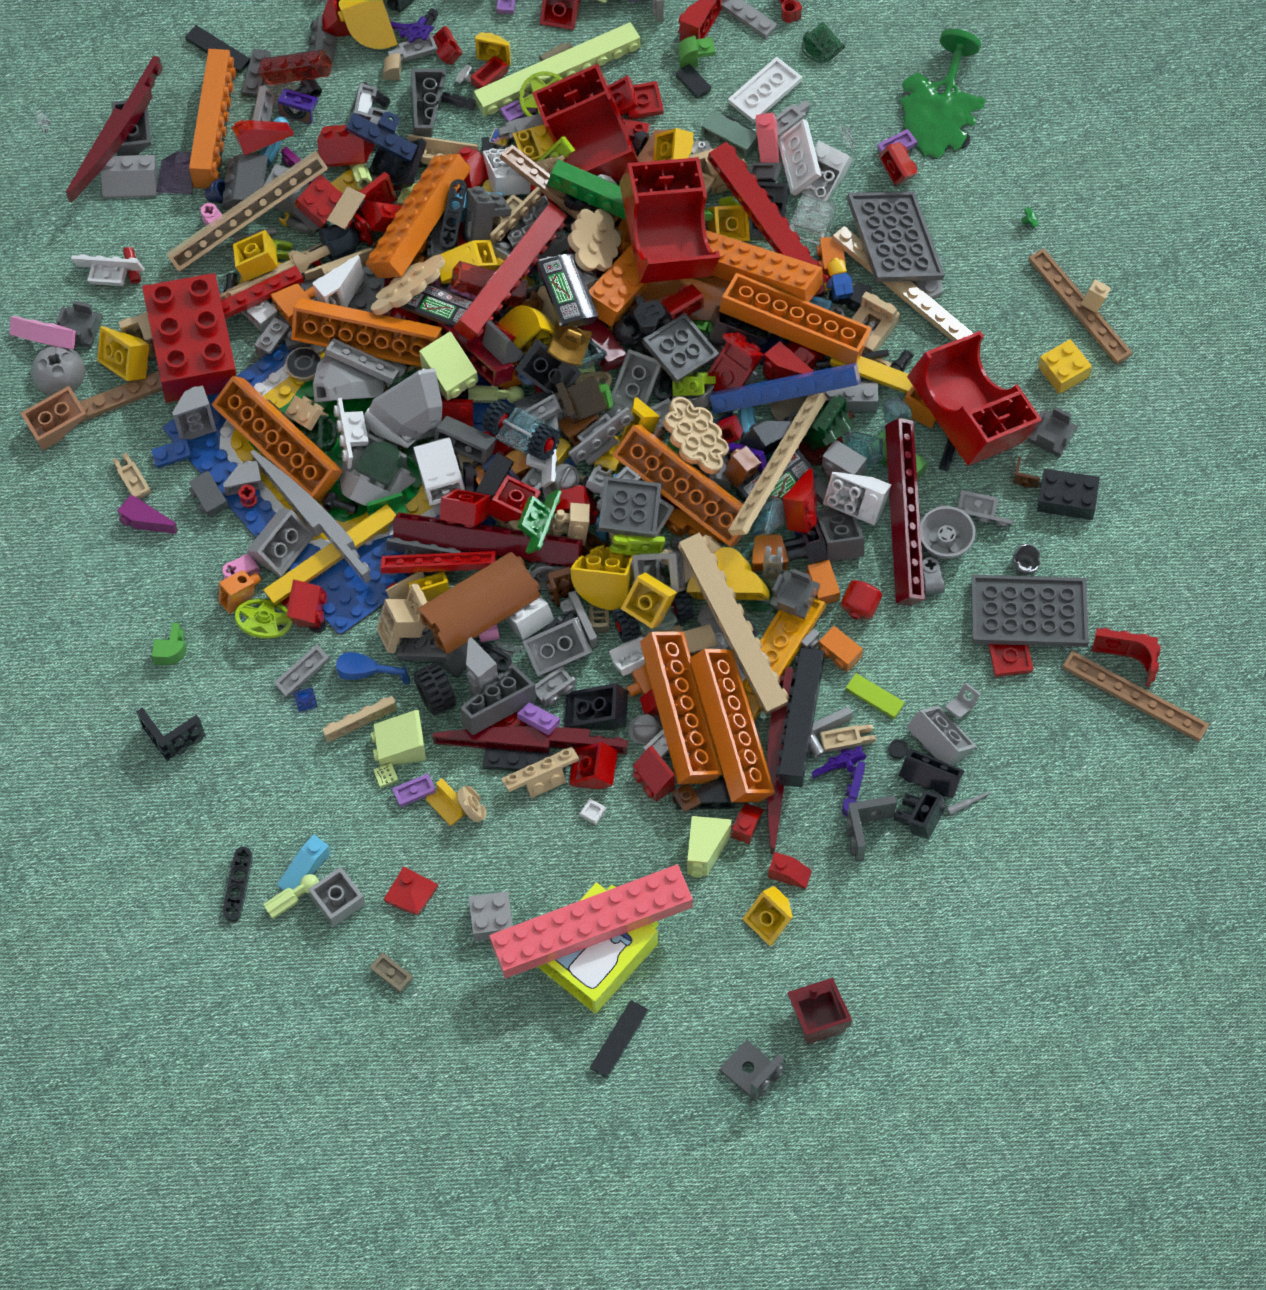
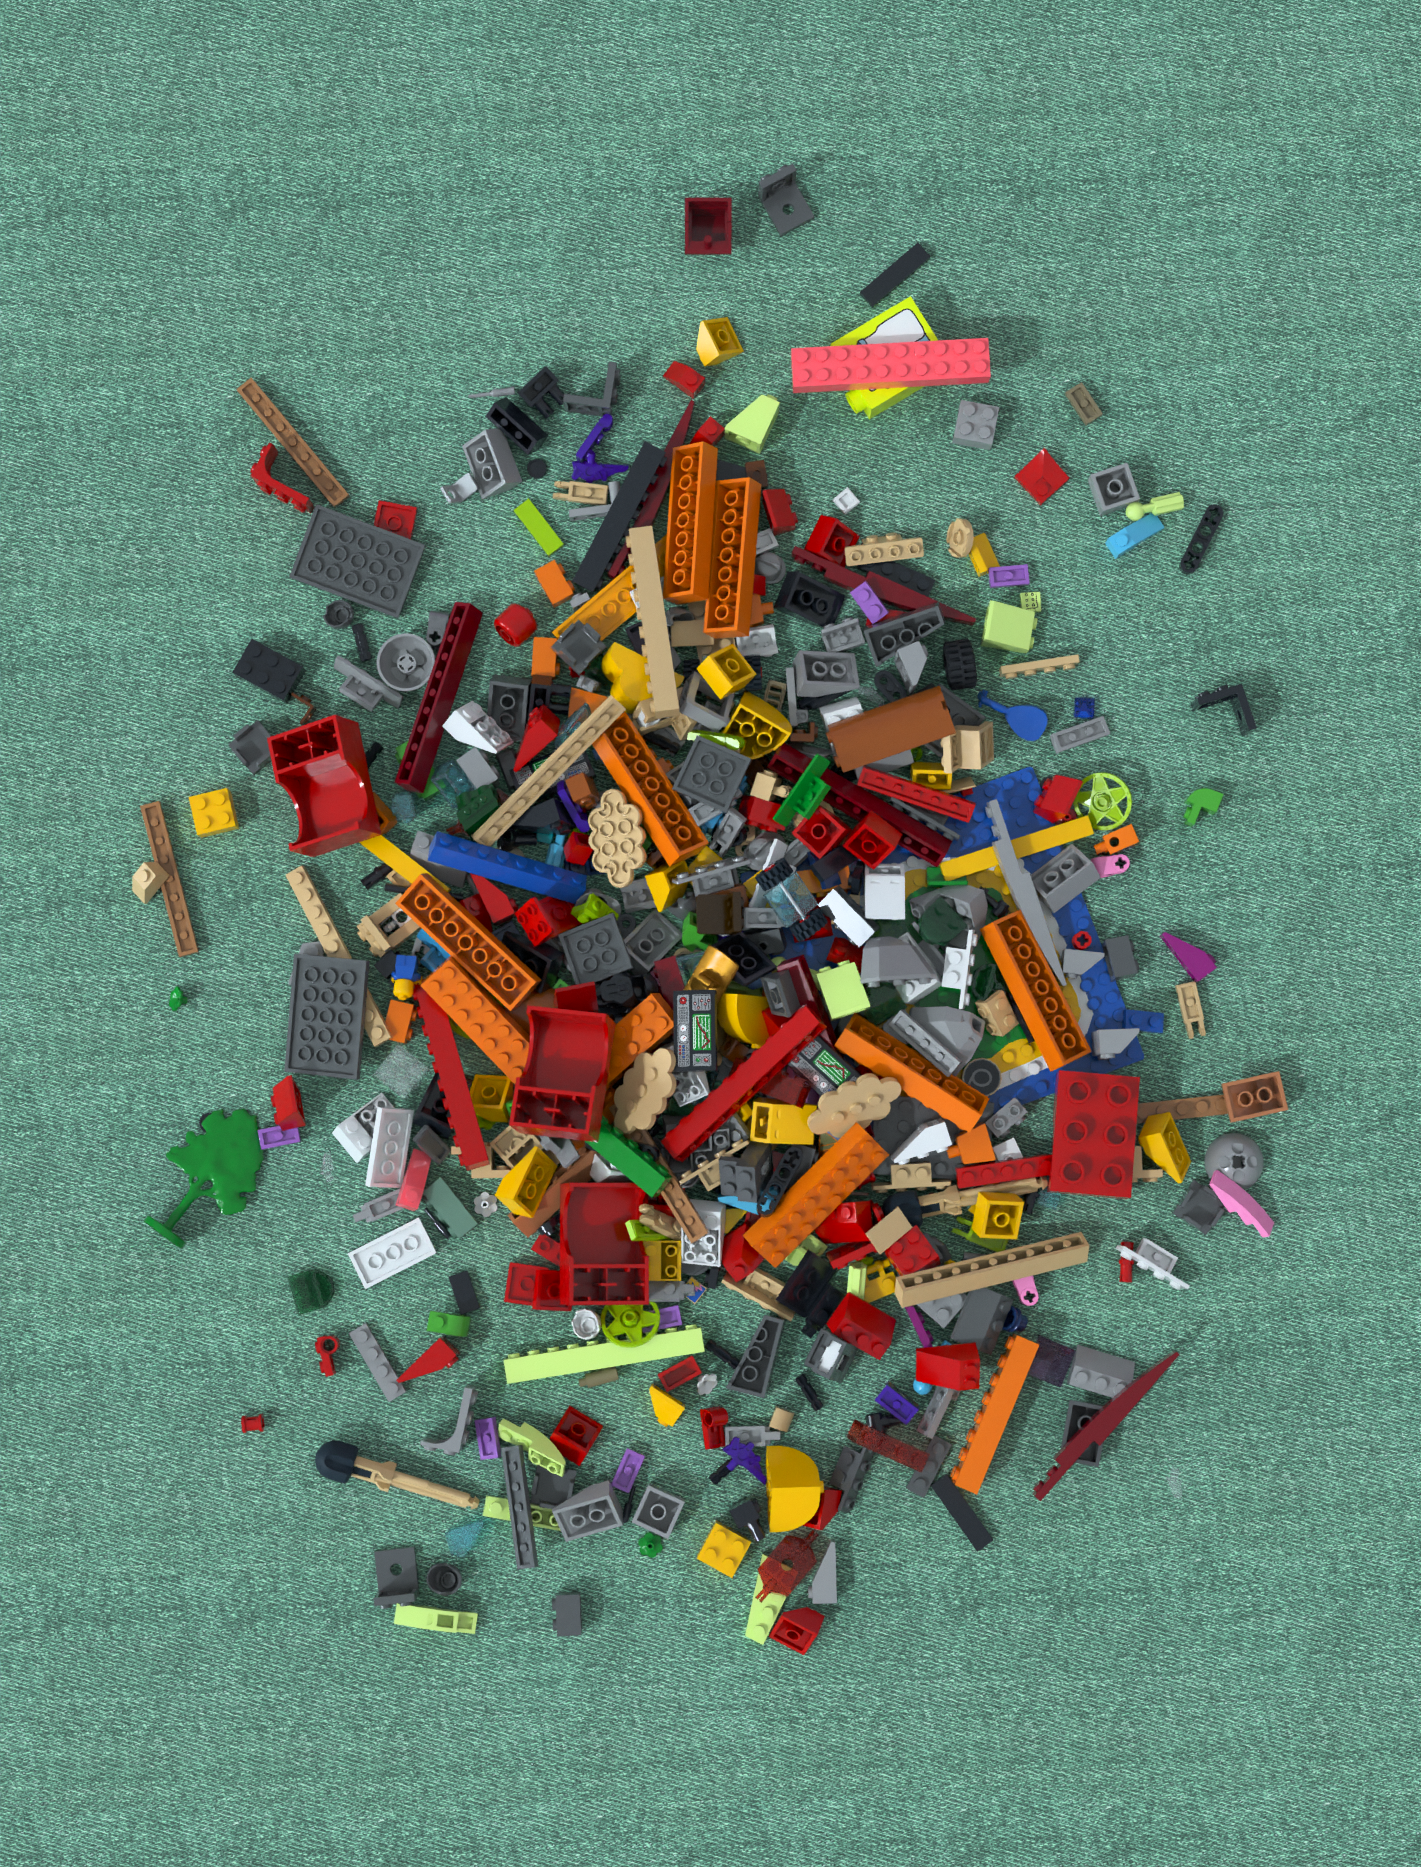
camera: 160 degrees left, 20 degrees up
(382, 134) = (823, 1312): dark blue plate -> none
(996, 546) = (361, 642): none -> black axle

